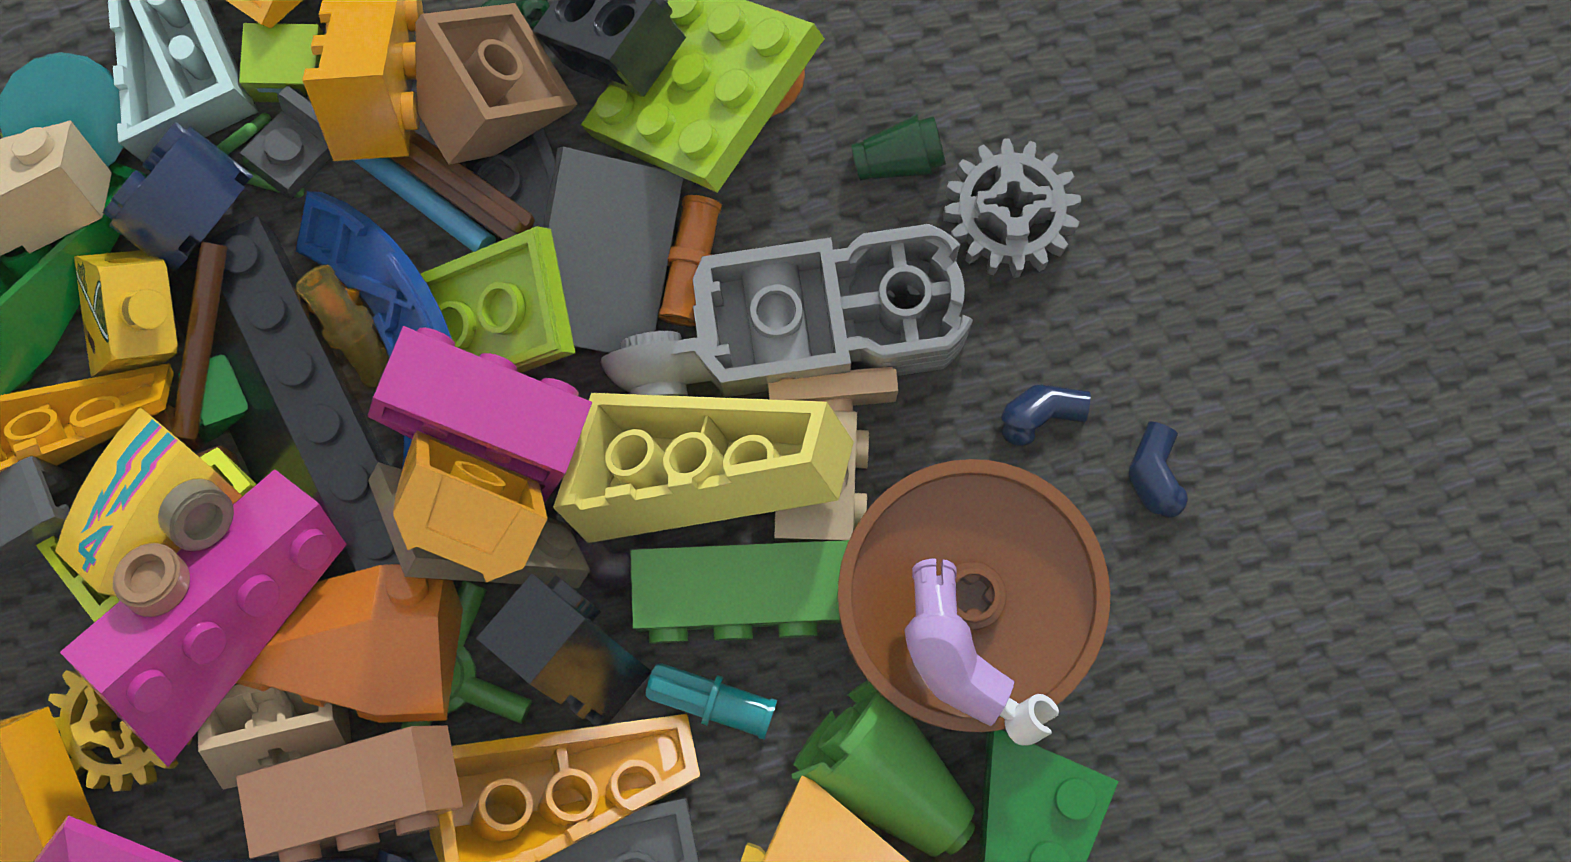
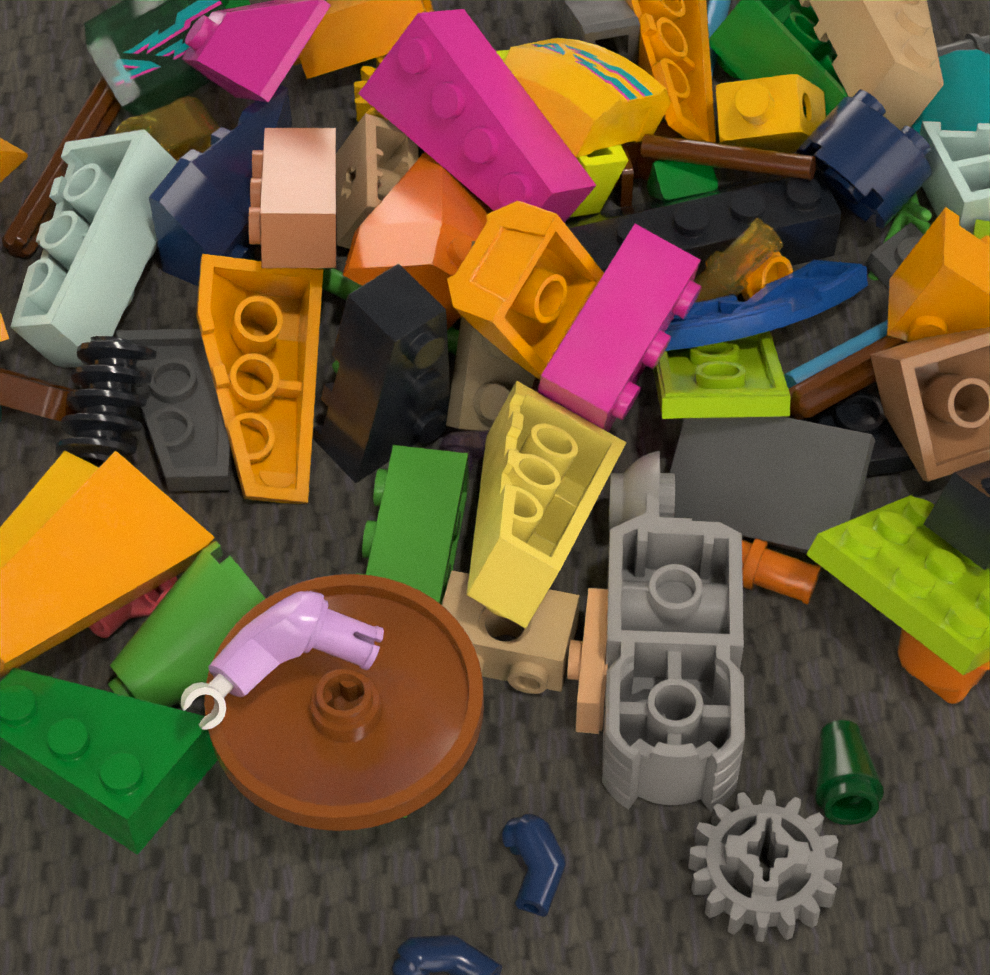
camera: 100 degrees right, 25 degrees down
(151, 580) = (508, 66): medium nougat tile -> none
(196, 514) = (559, 105): dark tan tile -> none
(710, 699) = (313, 519): teal axle -> none

